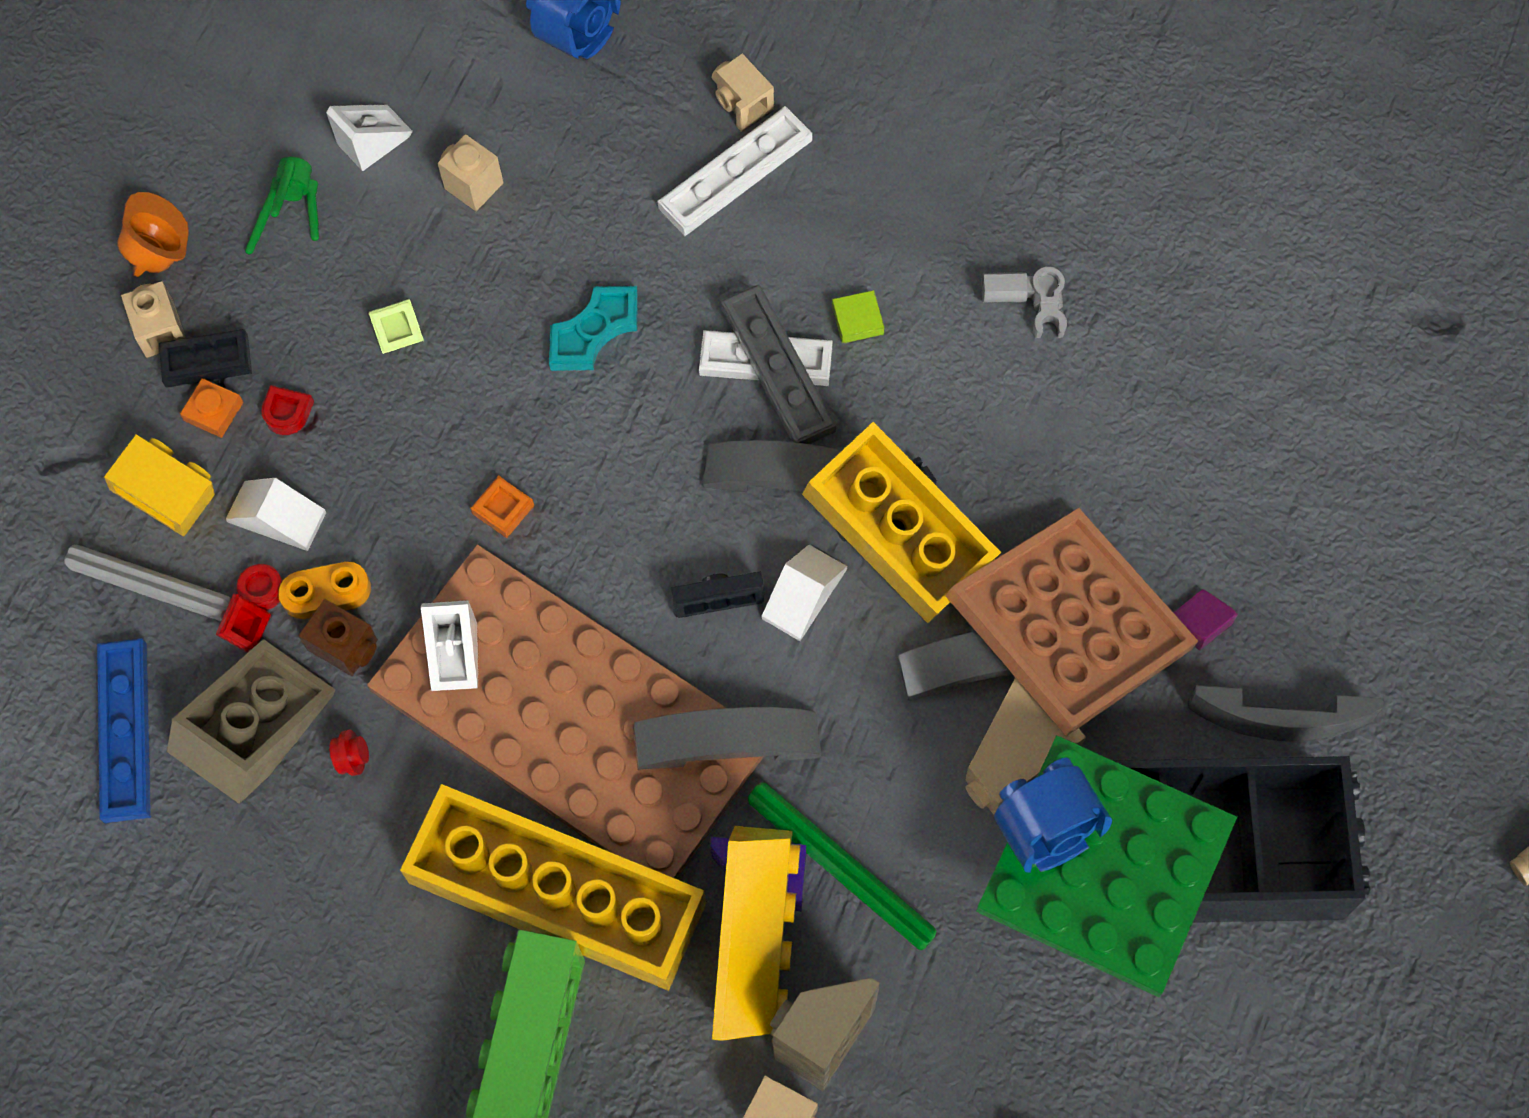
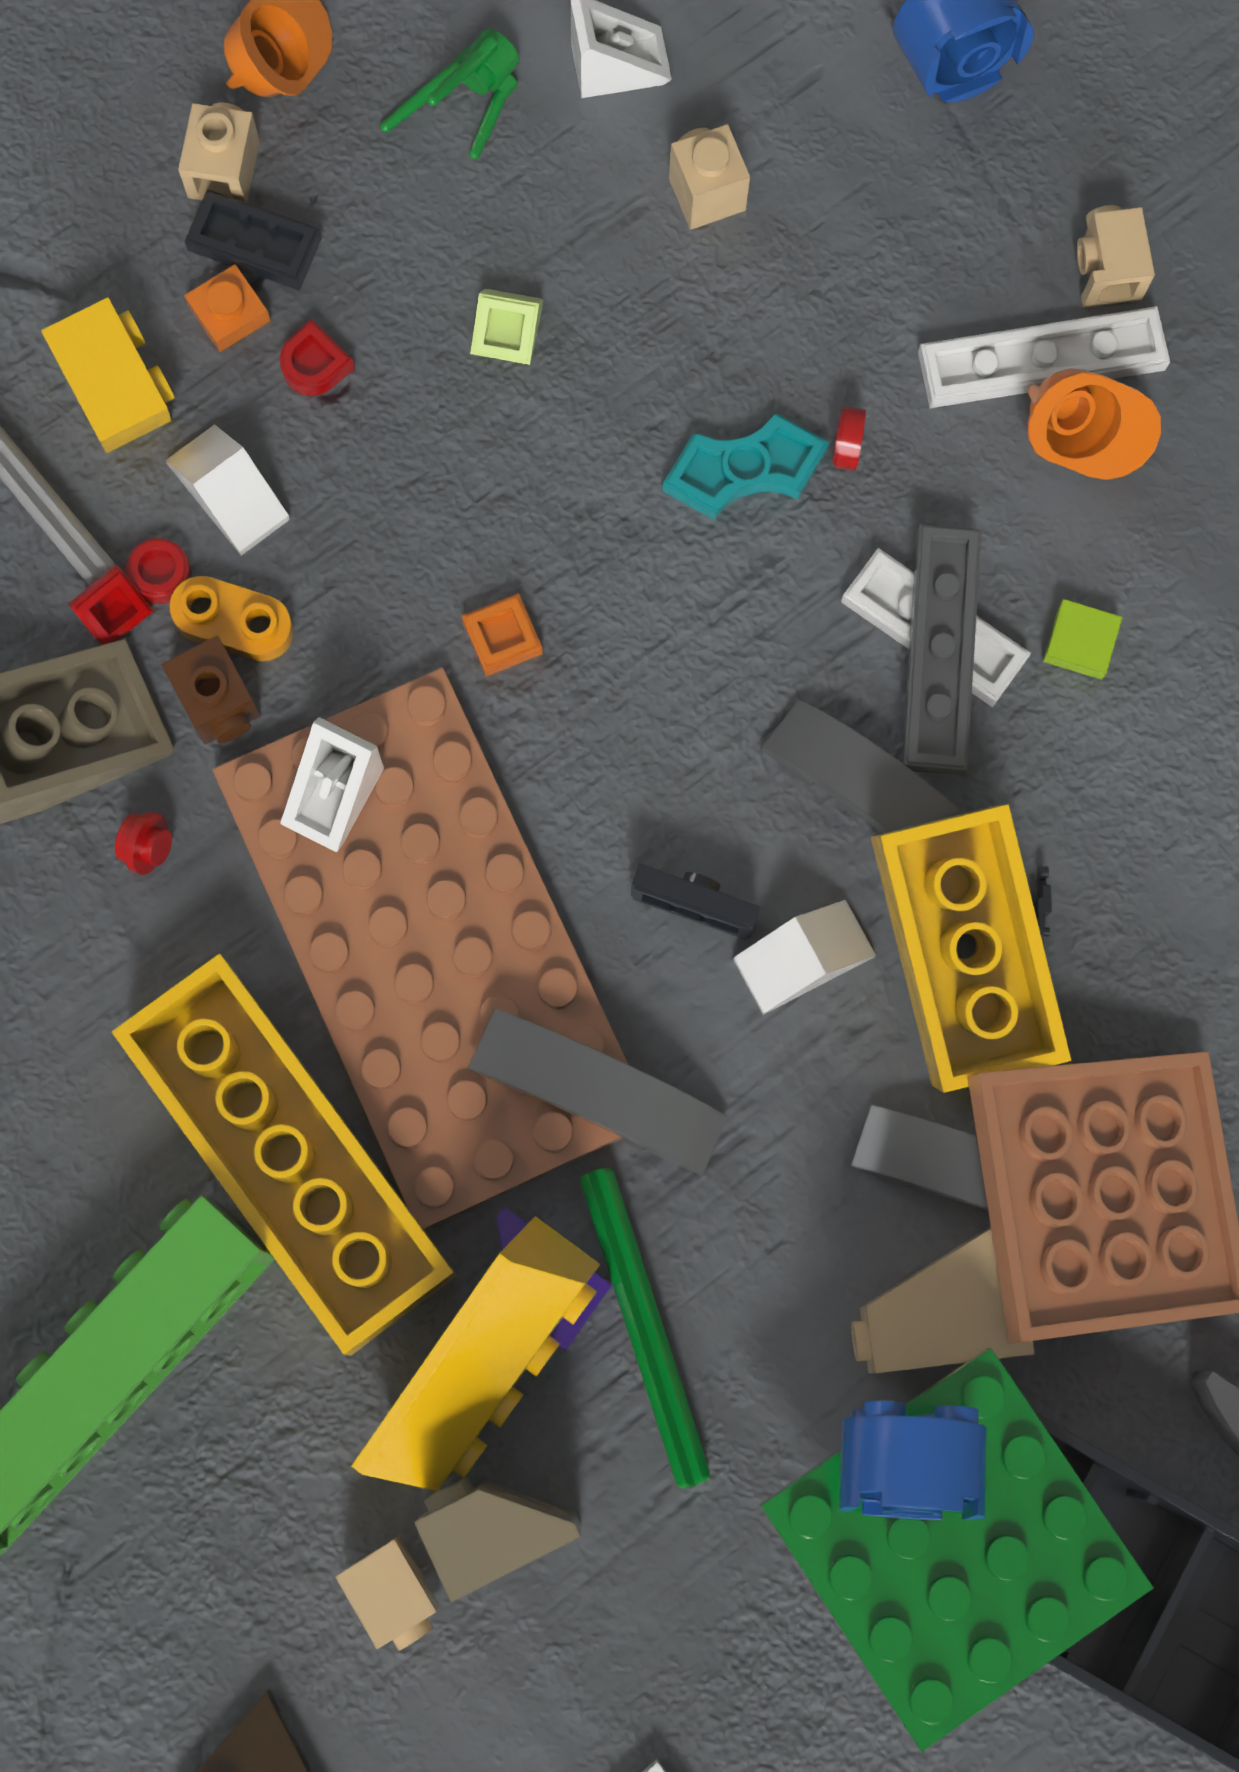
camera: 25 degrees right, 10 degrees up
(647, 276) = (848, 438): none -> red tile
(788, 190) = (1092, 424): none -> orange piece

